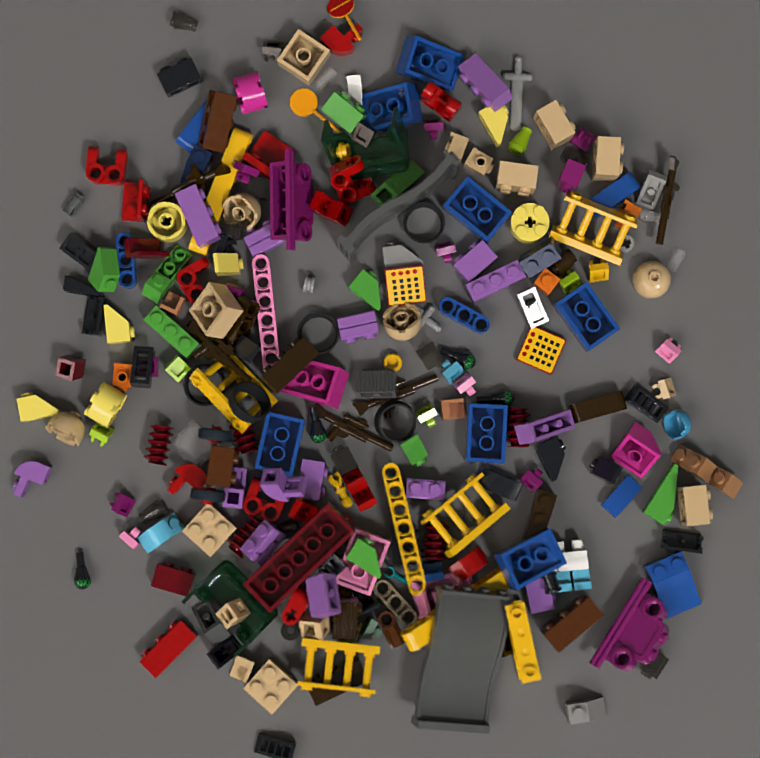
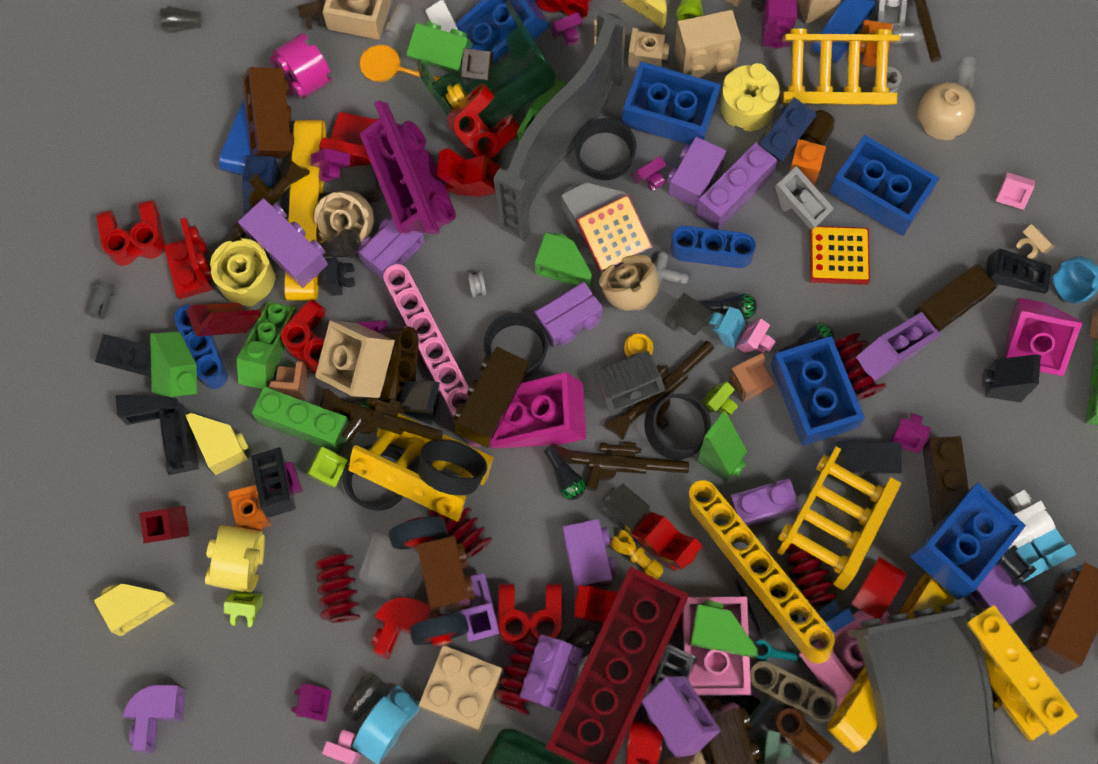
camera: 15 degrees left, 15 degrees down
(68, 427) = (186, 615): tan cylinder -> none
(179, 77) = (197, 86): black brick -> none
(227, 264) = (349, 296): light yellow slope -> none
(280, 443) = (520, 519): blue brick -> none
(280, 487) = (547, 578): medium lavender brick -> none
(551, 456) = (924, 392): black slope -> none
(570, 282) = (838, 151): lime tile -> none
(598, 272) = (871, 124): yellow tile -> none
(621, 496) = (1049, 409): blue slope -> none

